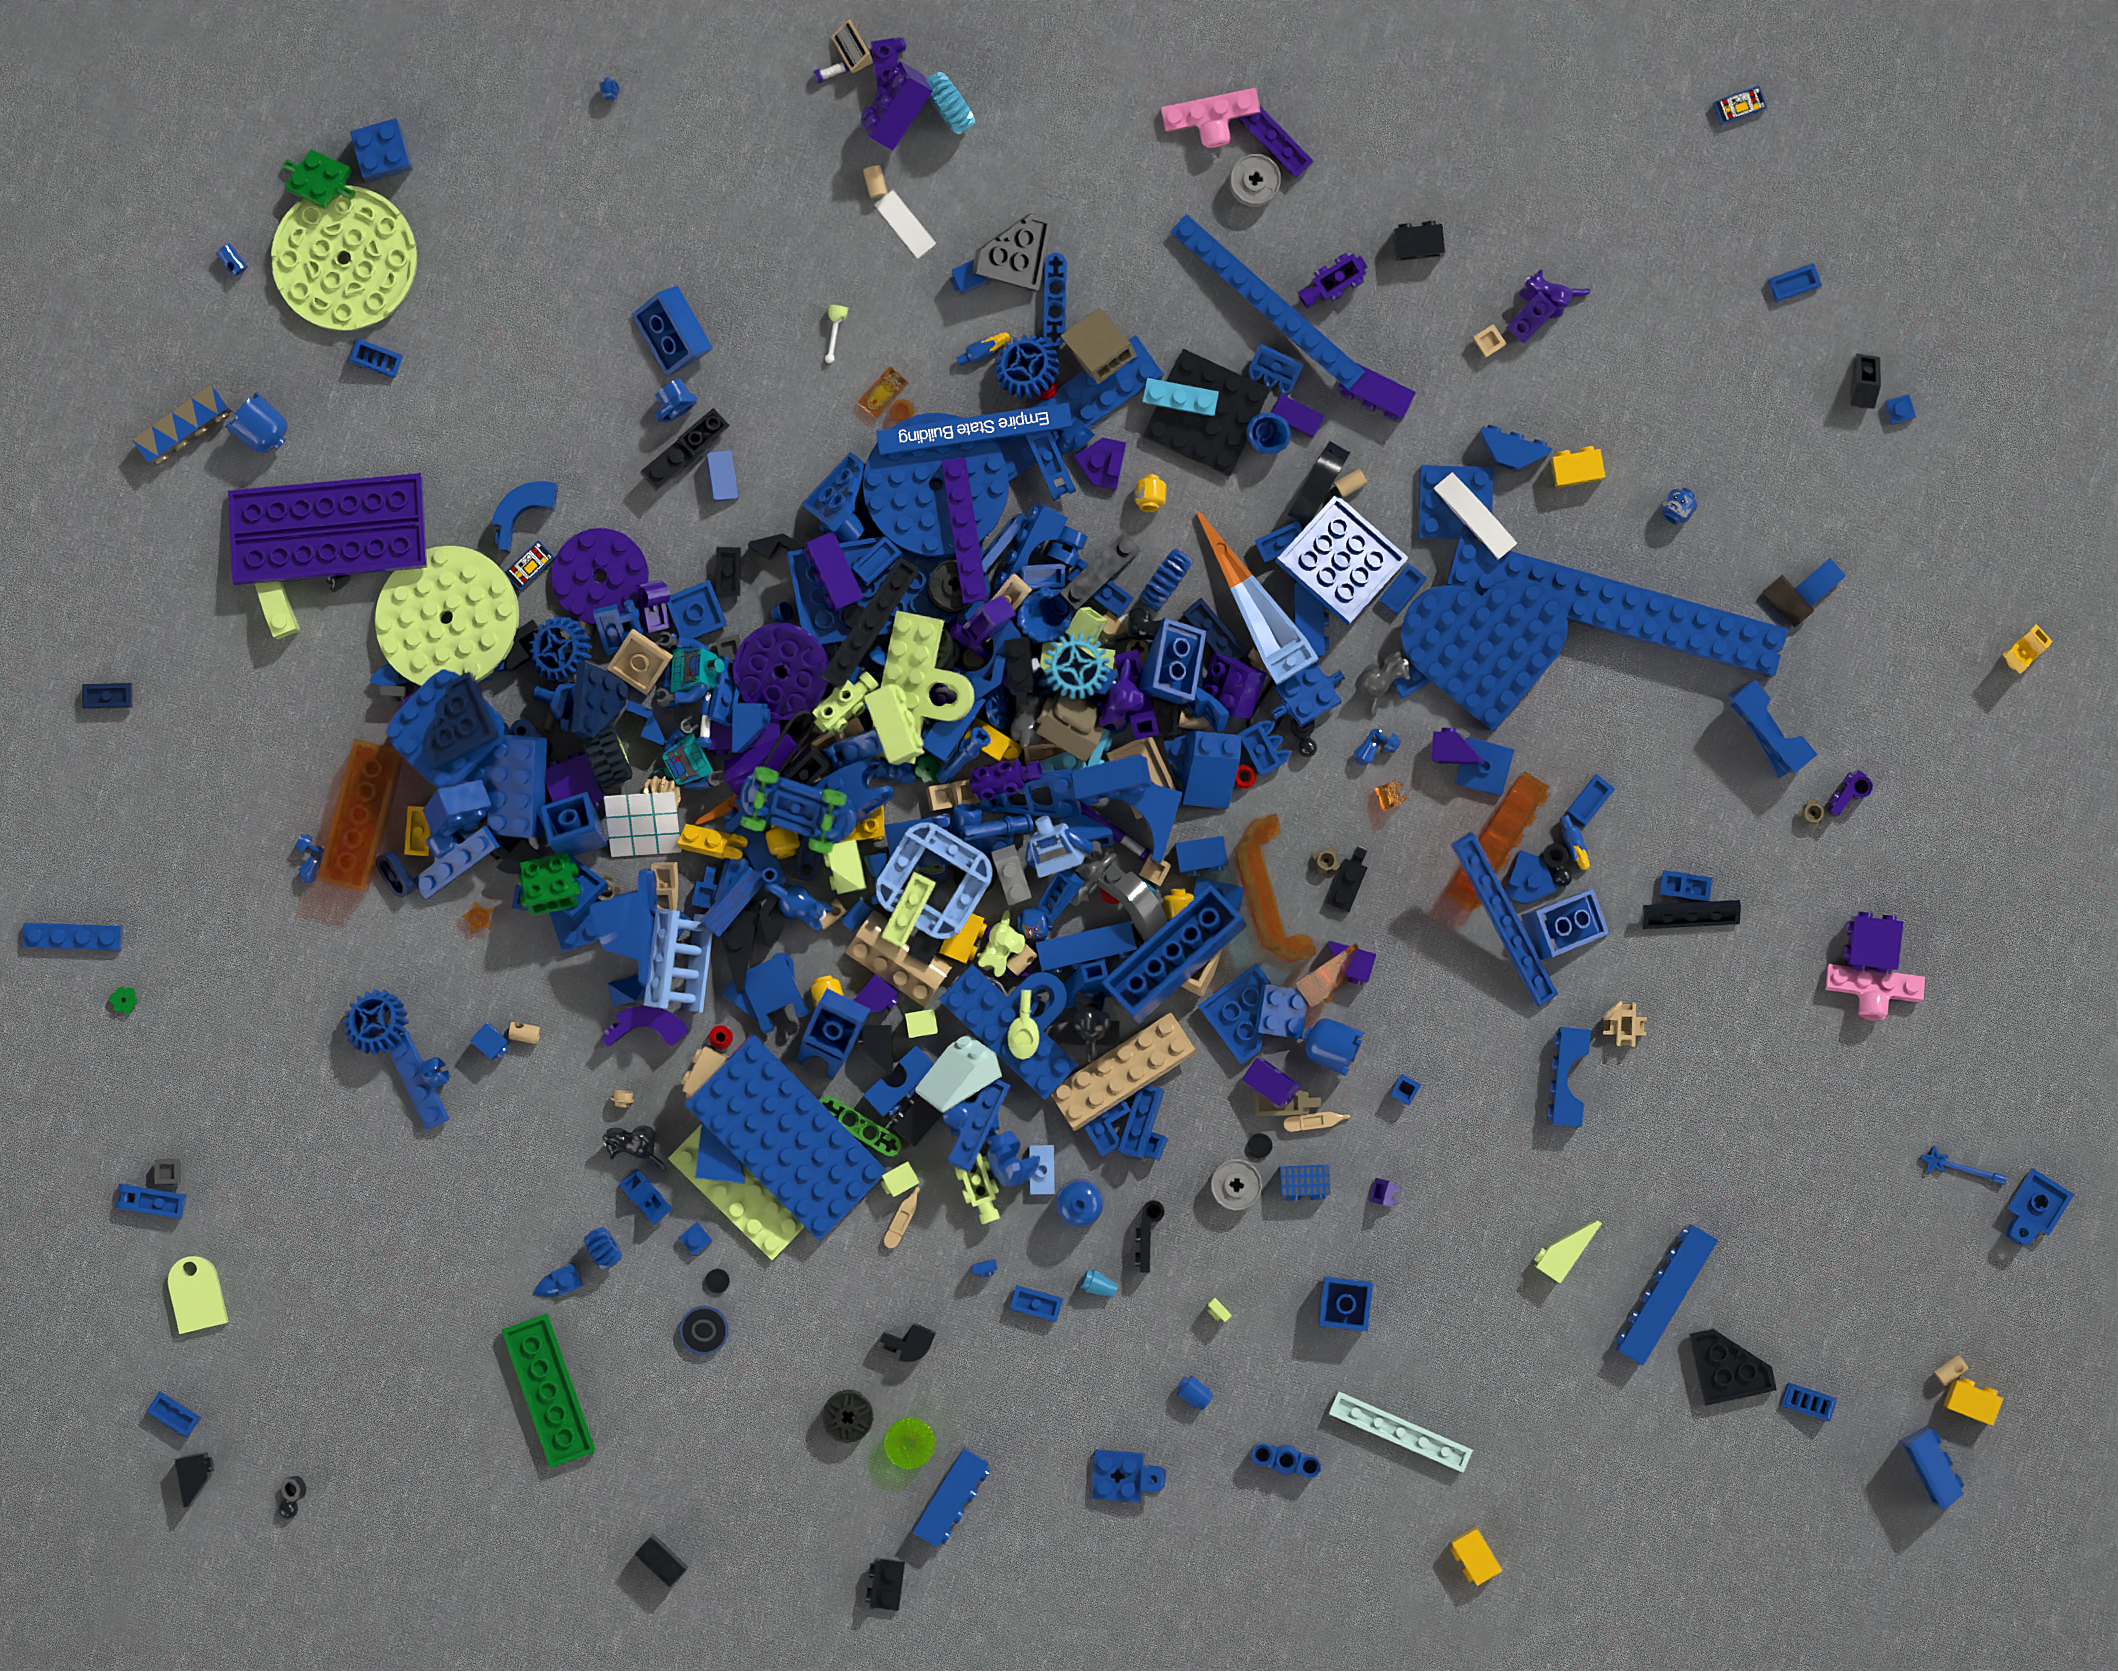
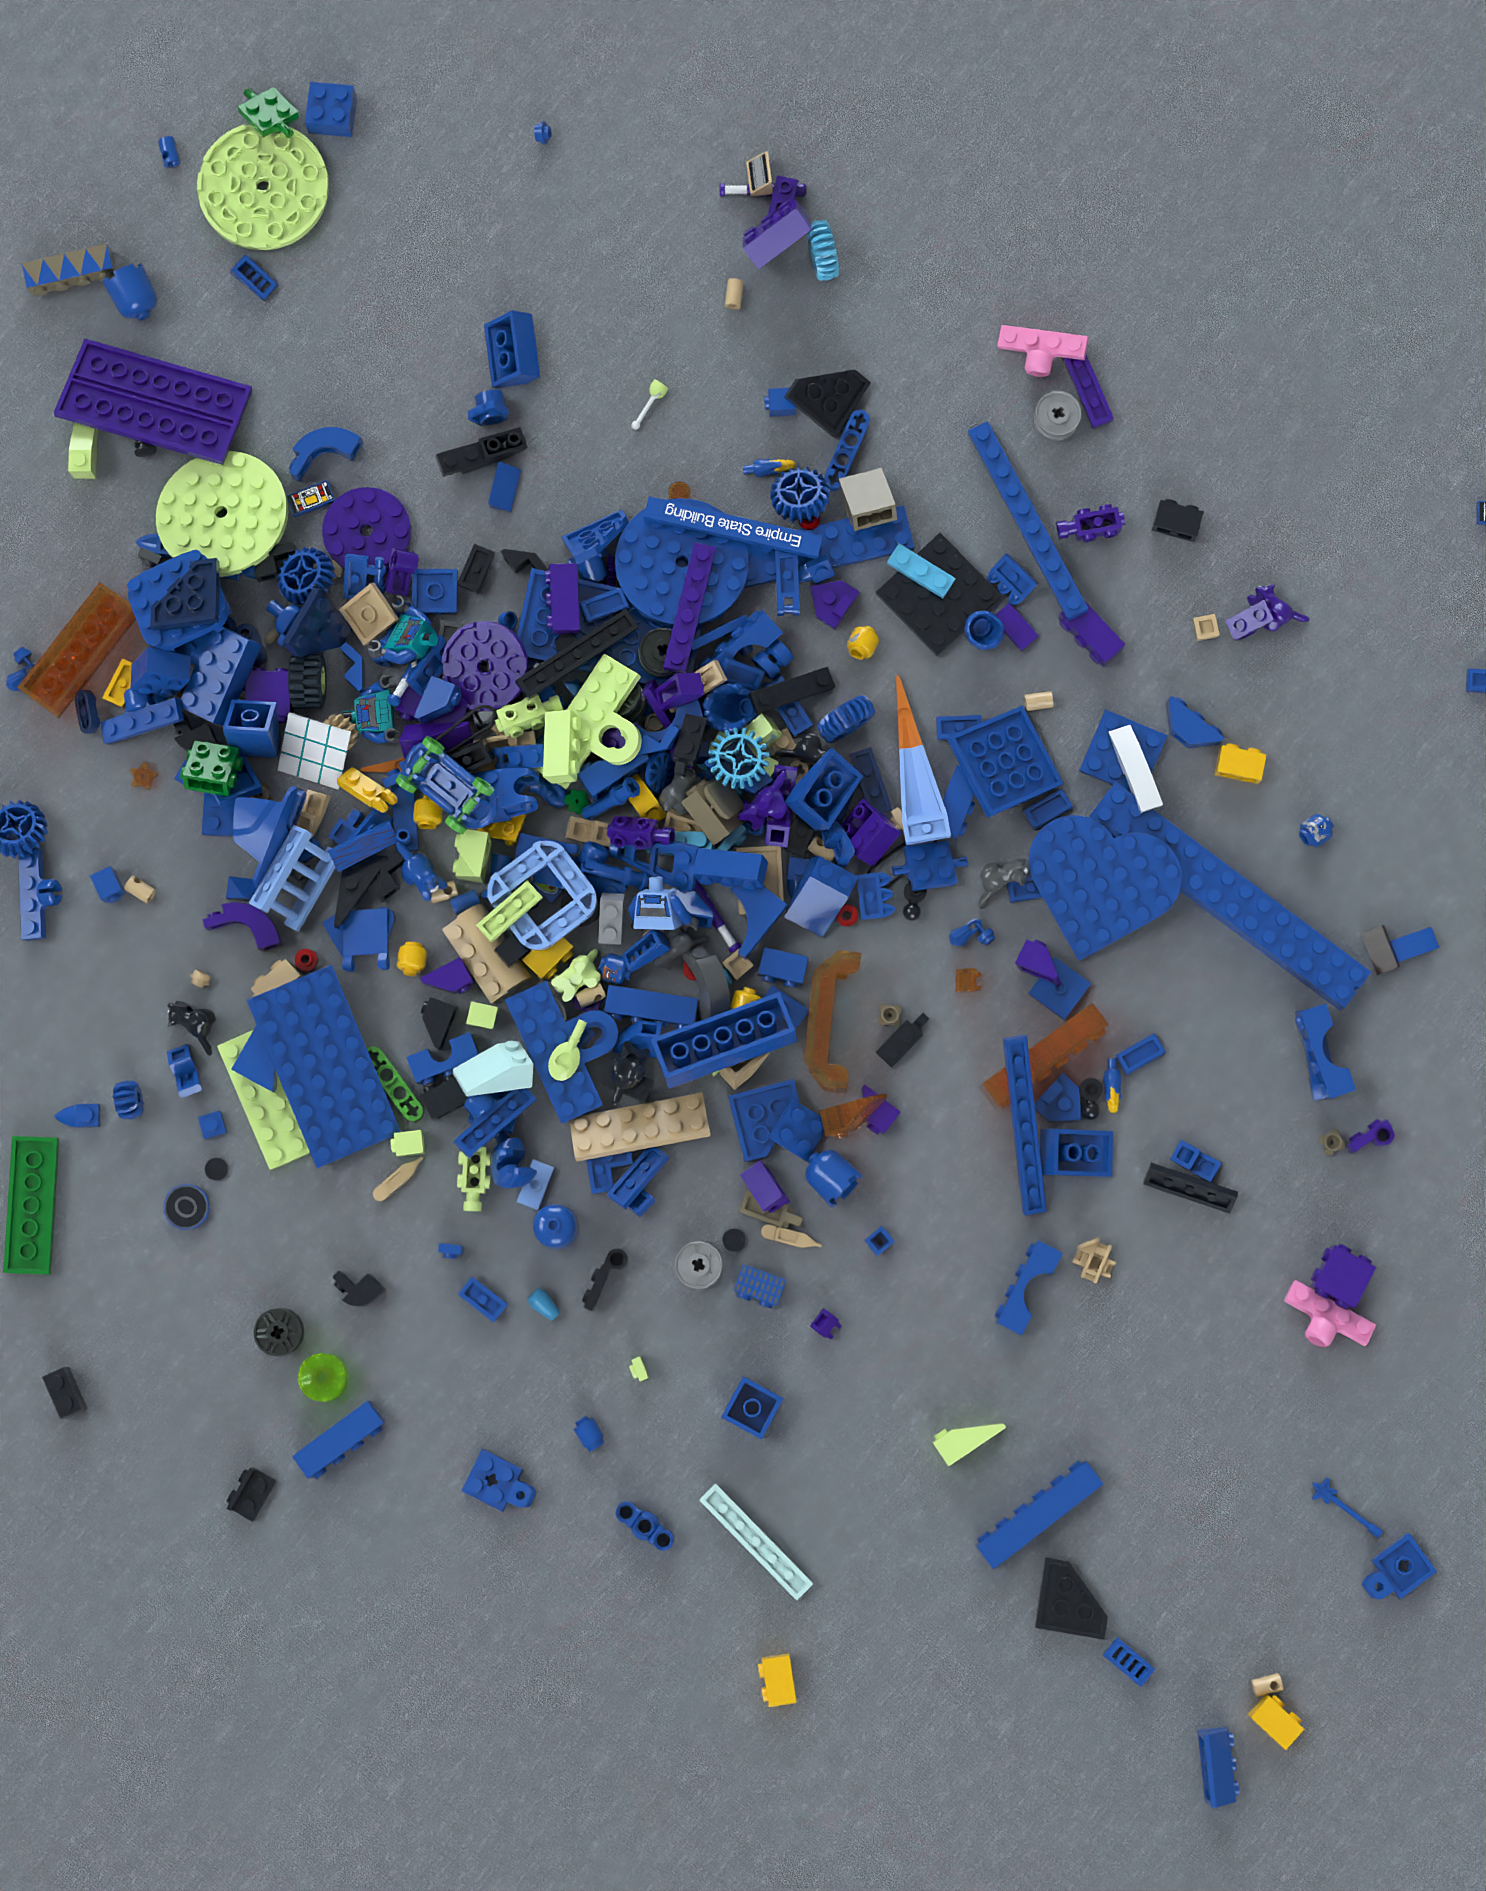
camera: 25 degrees right, 5 degrees down
(808, 856) = (443, 835): dark blue plate -> none
(833, 1030) = (402, 990): blue brick -> none
(883, 392) = (669, 470): clear orange tile -> none
(905, 224) = (745, 339): white sticker -> none
(1318, 483) = (1010, 689): black arch -> none

